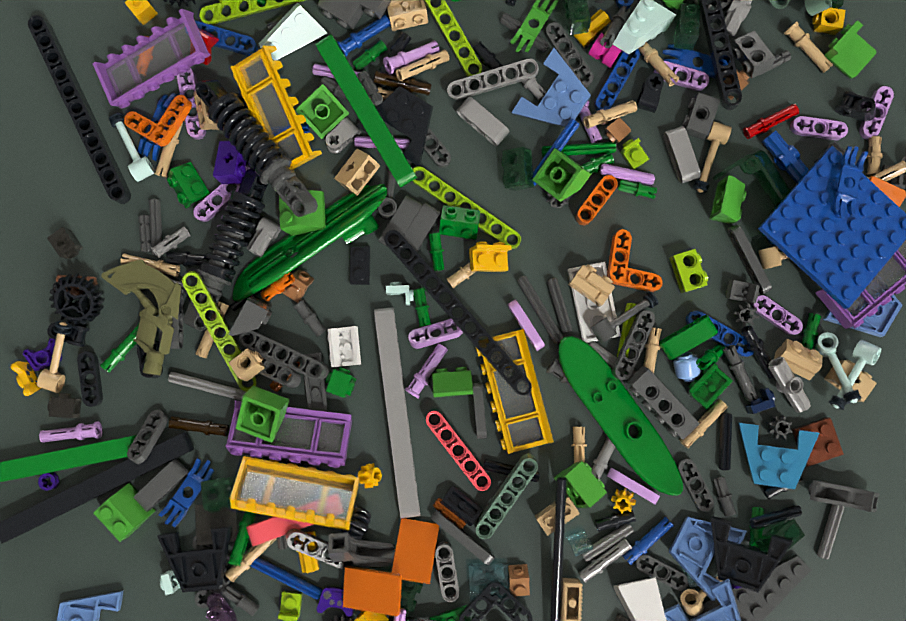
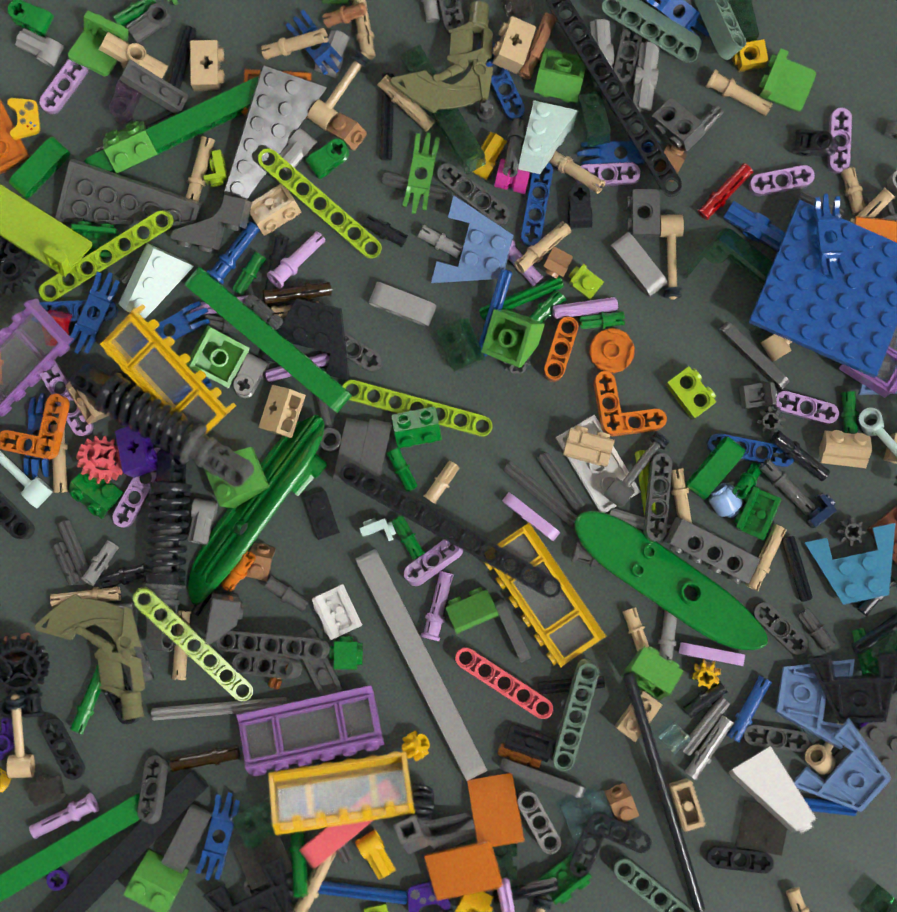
camera: 20 degrees left, 0 degrees up
(200, 160) = (101, 459): none -> coral gear
(231, 54) = (98, 300): none -> blue piece
(239, 364) = (228, 670): tan brick -> none
(261, 413) = (273, 718): bright green slope -> none
(303, 74) = (182, 322): none -> blue piece
(318, 553) = (389, 850): beam -> none
(439, 57) = (313, 264): tan pin -> none
(483, 79) = (387, 257): light grey beam -> none
(489, 257) = (463, 456): yellow bracket -> none
(636, 216) = (612, 350): none -> orange tile
(728, 200) = (708, 299): bright green slope -> none
(789, 384) = (844, 481): light grey piece -> none

